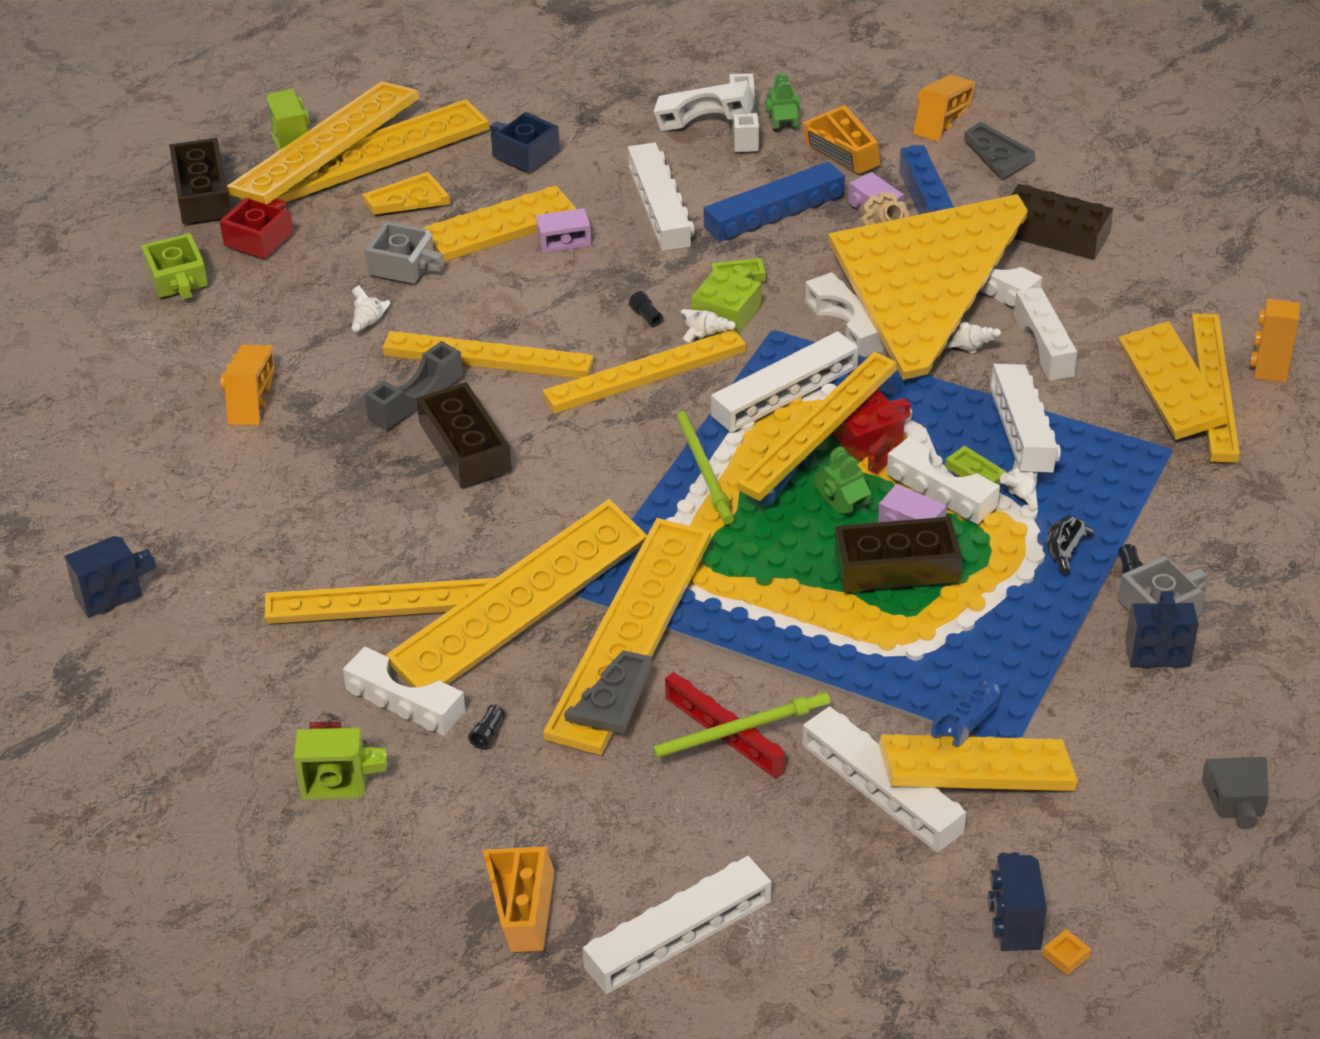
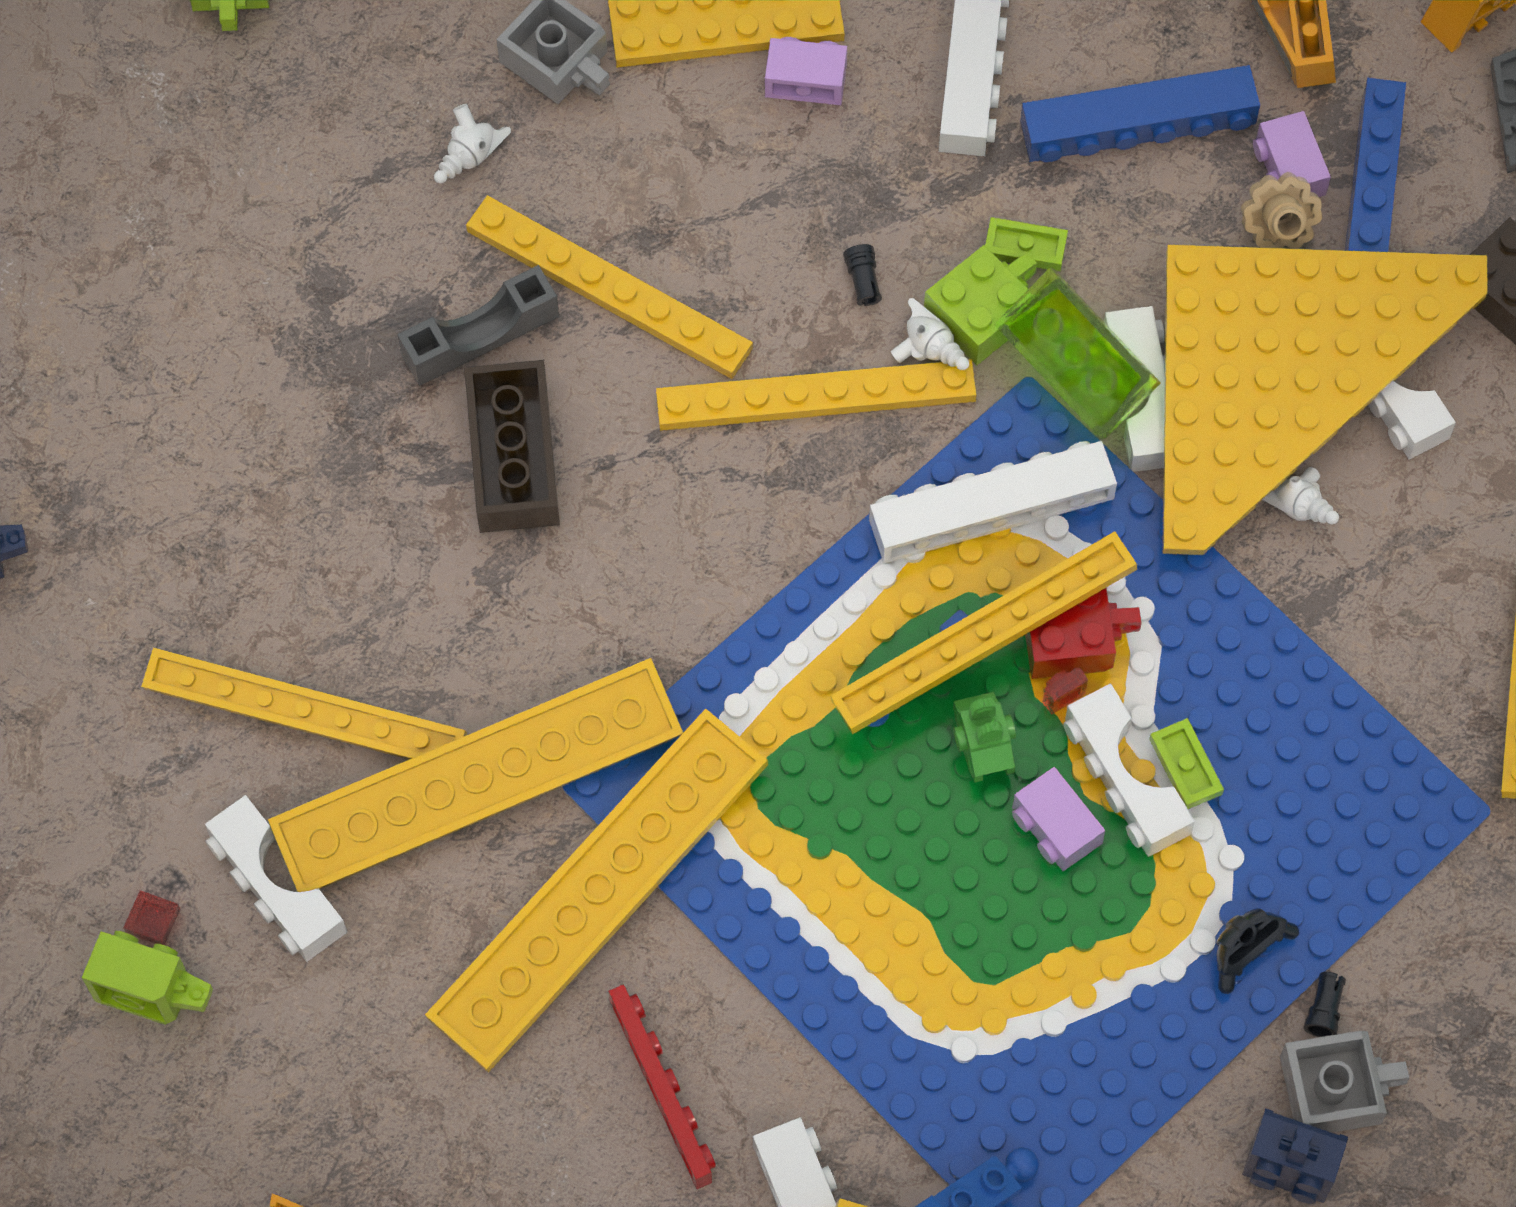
camera: 20 degrees right, 25 degrees up
(245, 382) = (255, 234): light orange wedge -> none
(485, 731) = (353, 983): black pin -> none
(615, 694) = (528, 1000): dark grey wing -> none
(719, 499) = (812, 693): lime bar -> none
(797, 707) = (756, 1108): lime bar -> none
(800, 296) = (1077, 353): none -> clear neon green windscreen
(897, 554) = (1001, 890): dark brown brick -> none
(1022, 484) = (1240, 809): white piece -> none
(1024, 418) = (1291, 700): white brick -> none
(1054, 345) = (1413, 529): white arch -> none

